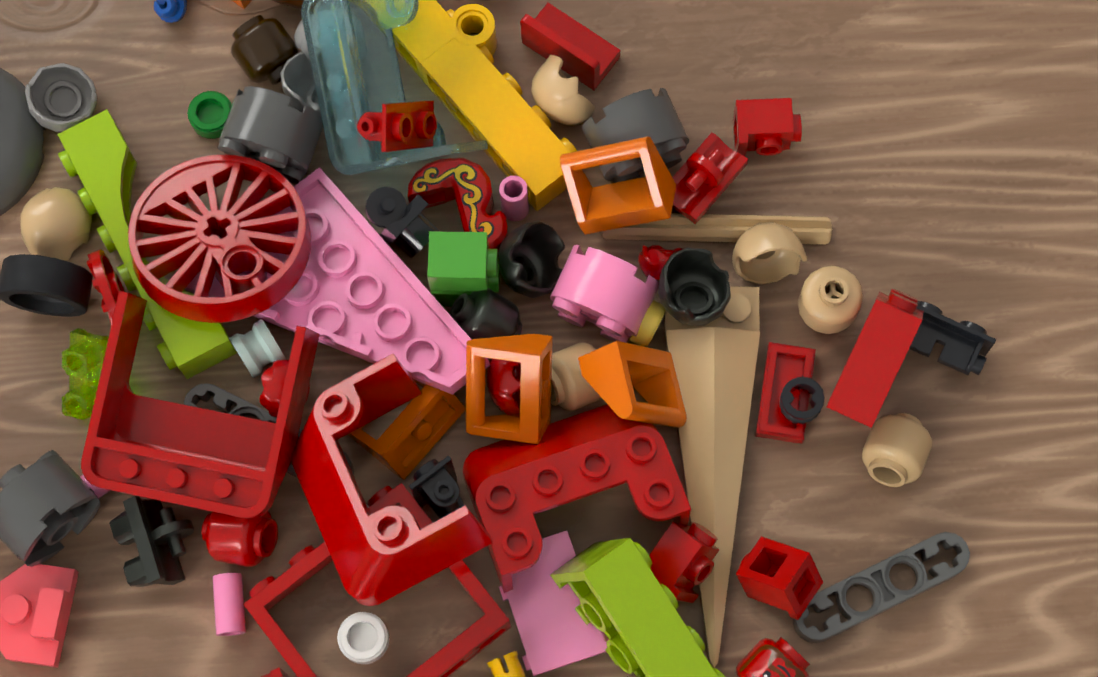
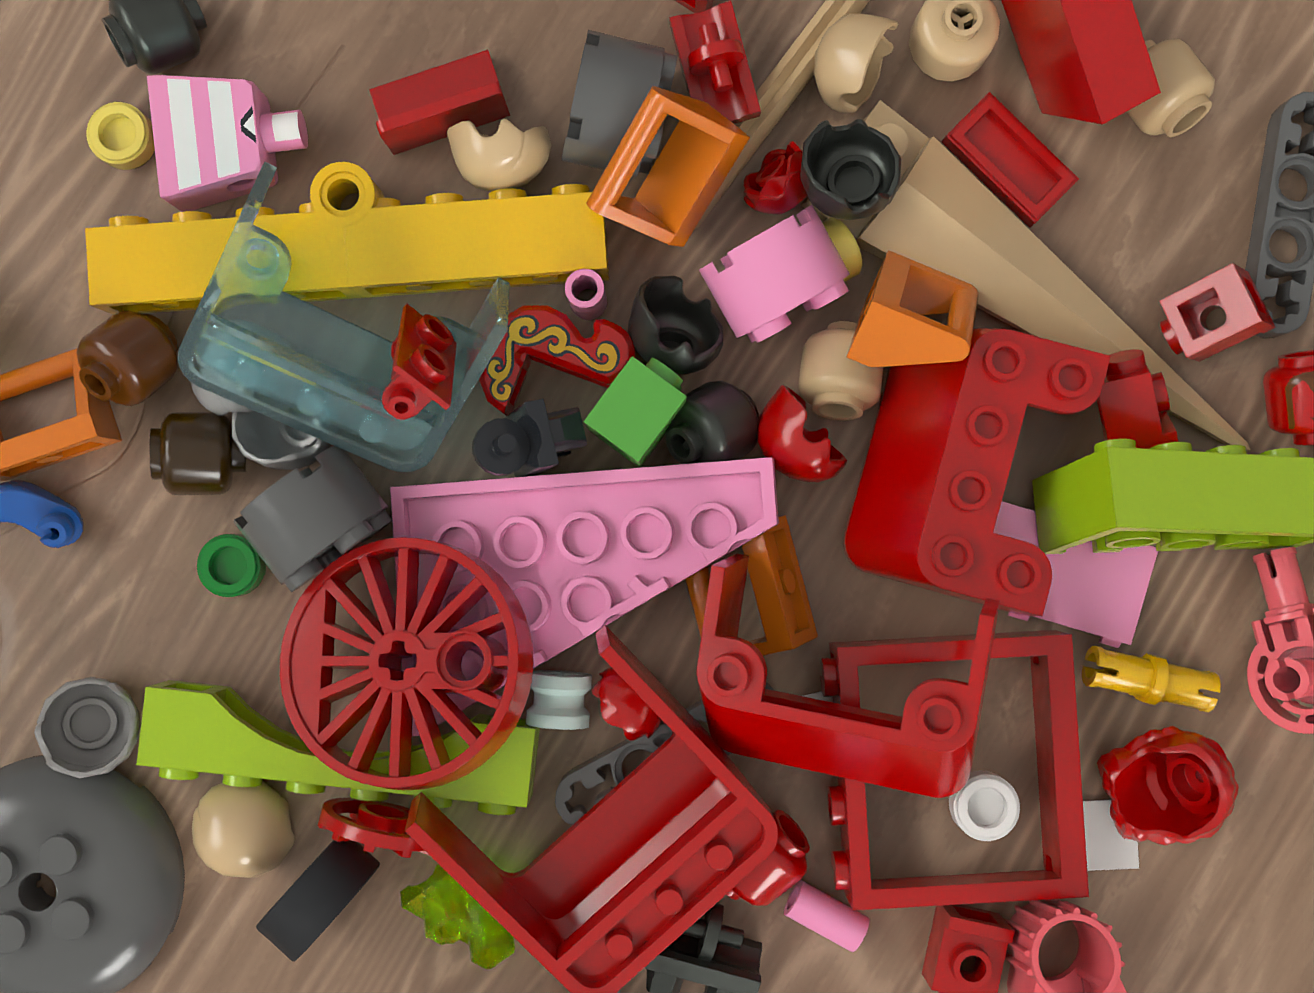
camera: 55 degrees left, 15 degrees up
(437, 486) = (876, 612): black hinge -> none
(535, 356) = (797, 417): orange tile -> none
(787, 398) = (1054, 131): black bush -> none

